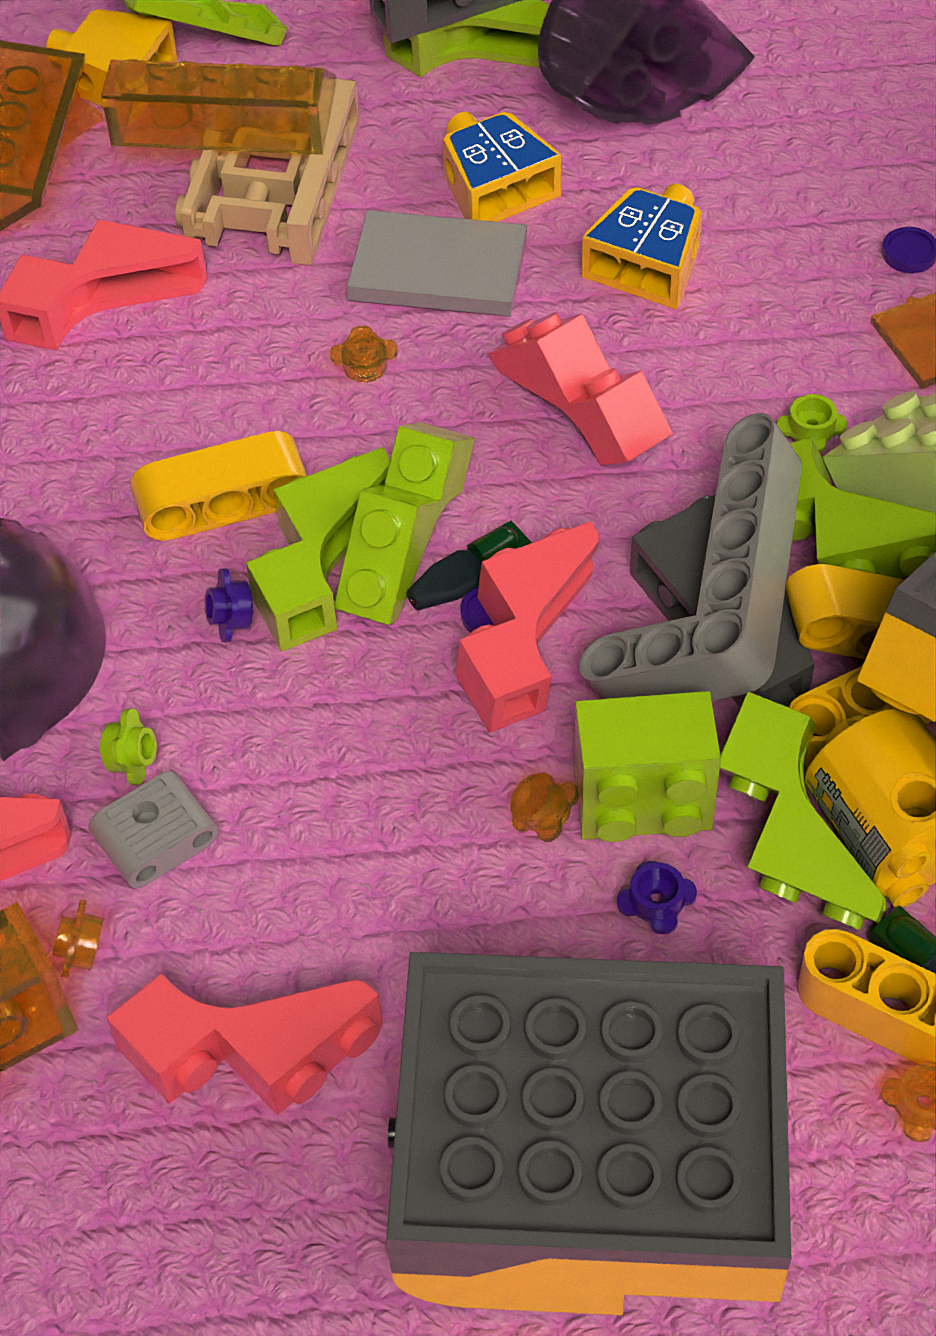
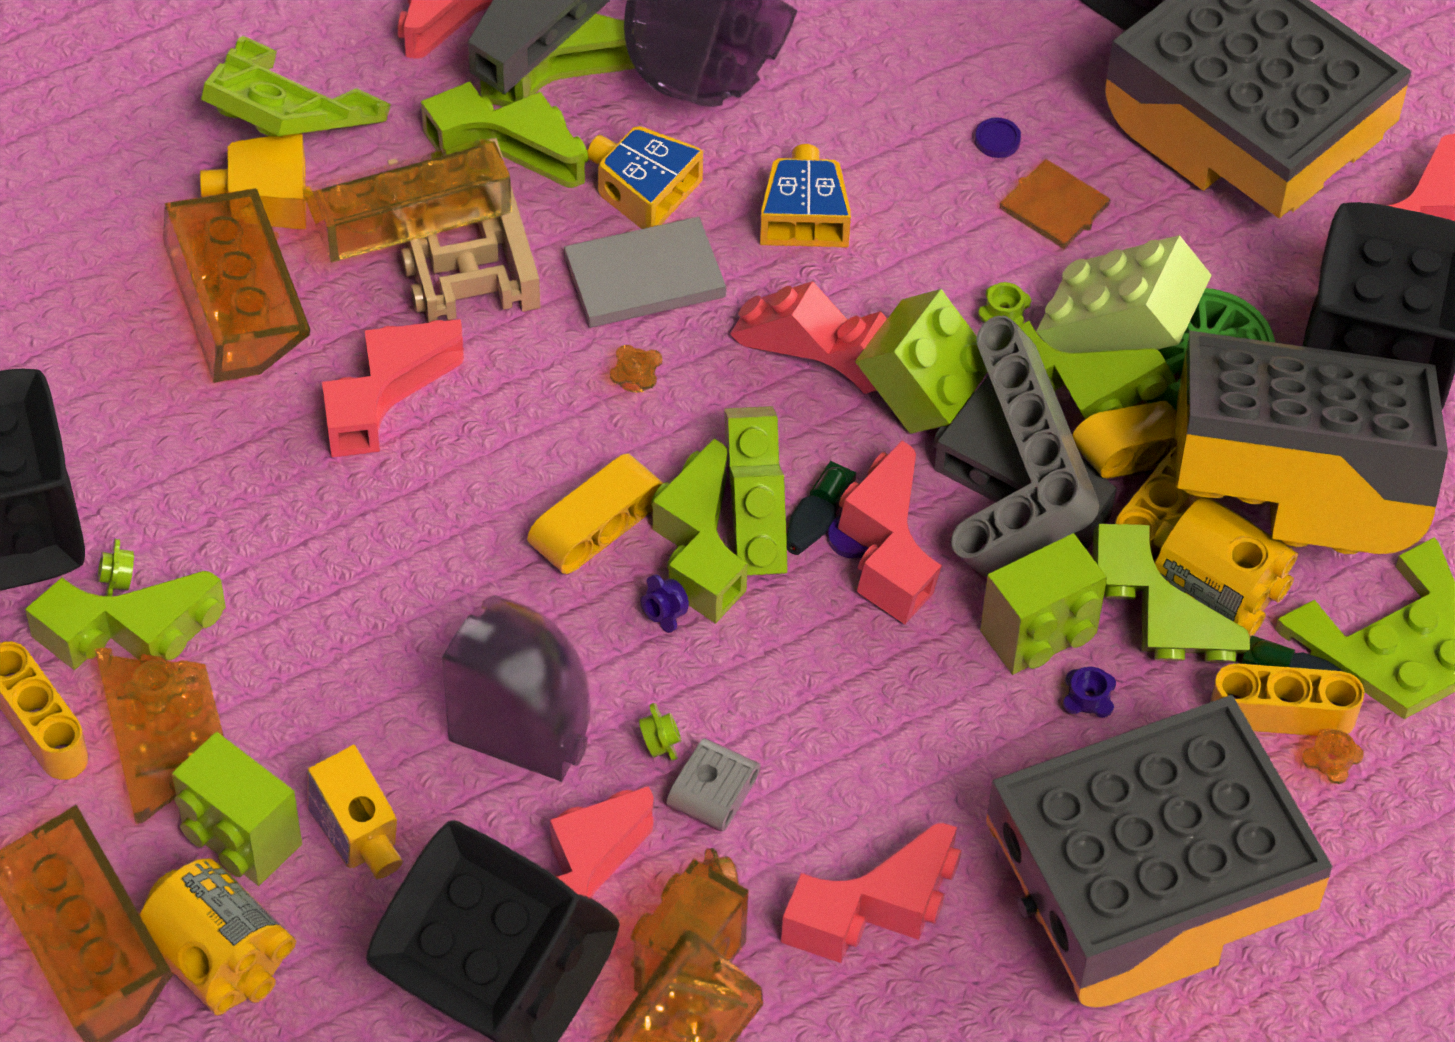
camera: 30 degrees left, 0 degrees up
(391, 86) = (526, 131): none -> lime arch
(542, 805) = (967, 658): clear yellow plate -> none
(662, 442) = (924, 361): none -> lime brick

